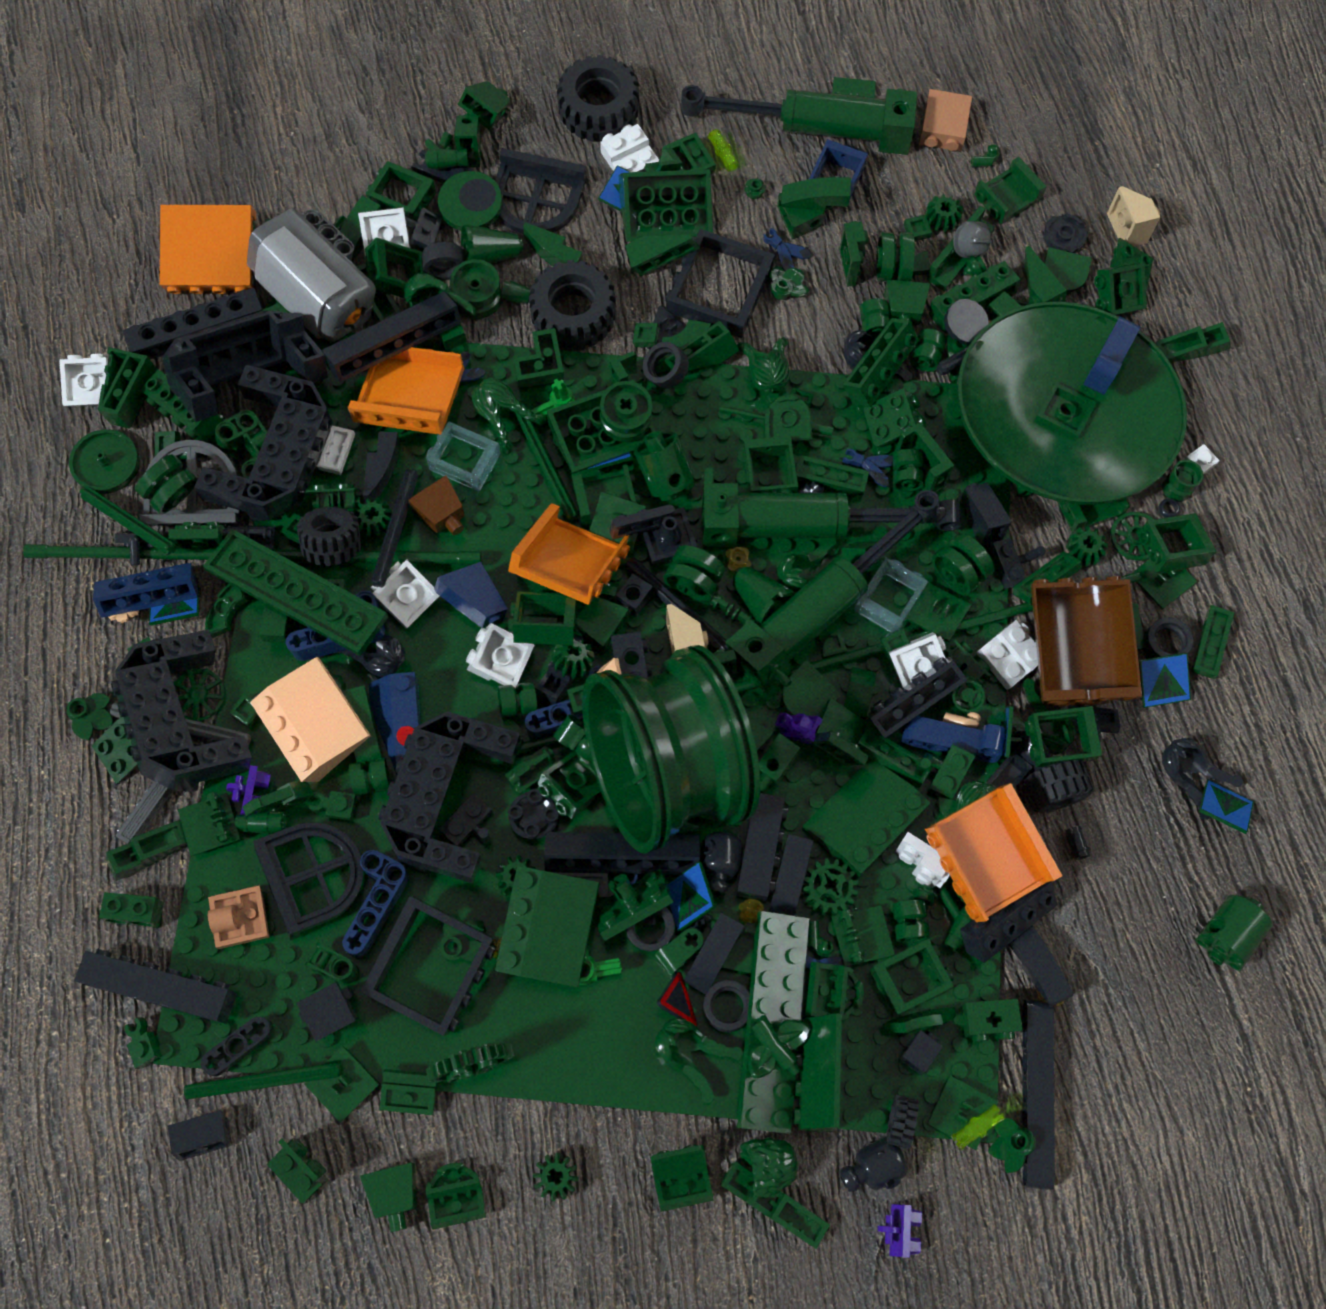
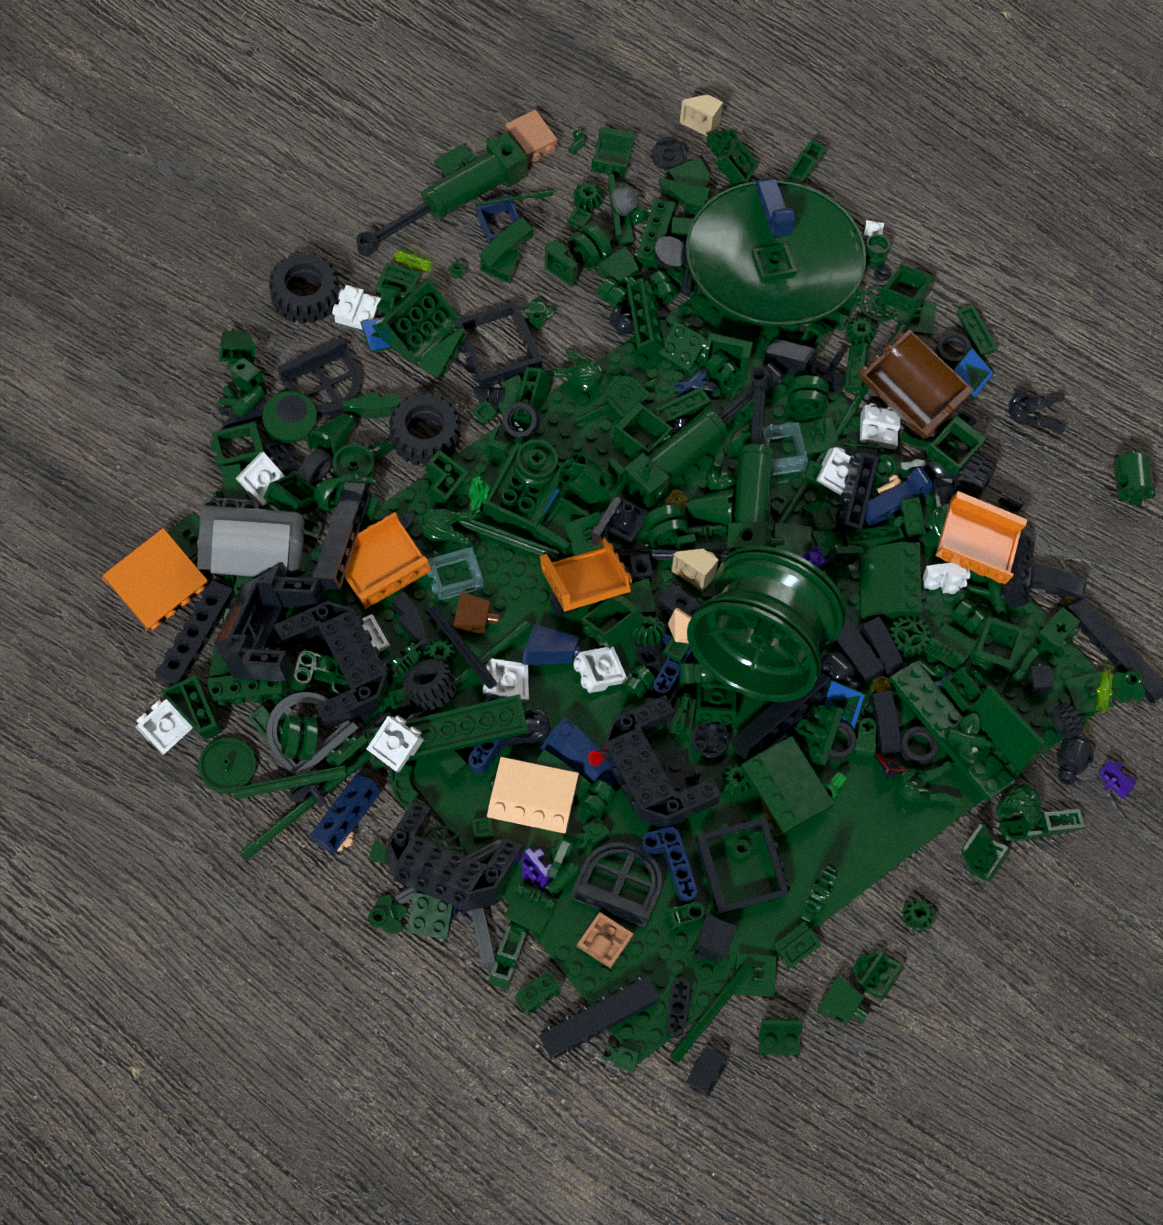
camera: 45 degrees left, 5 degrees down
(174, 611) = (377, 810): piece -> none
(235, 560) = (395, 742): none -> white plate
(700, 604) = (685, 542): none -> dark green tile
(786, 250) = (514, 293): dark blue piece -> none
(896, 175) = (537, 194): none -> dark green piece
(1008, 726) = (917, 461): dark green piece -> none
(1031, 515) = (817, 335): none -> dark green torso
(1226, 806) = (1067, 415): piece -> none

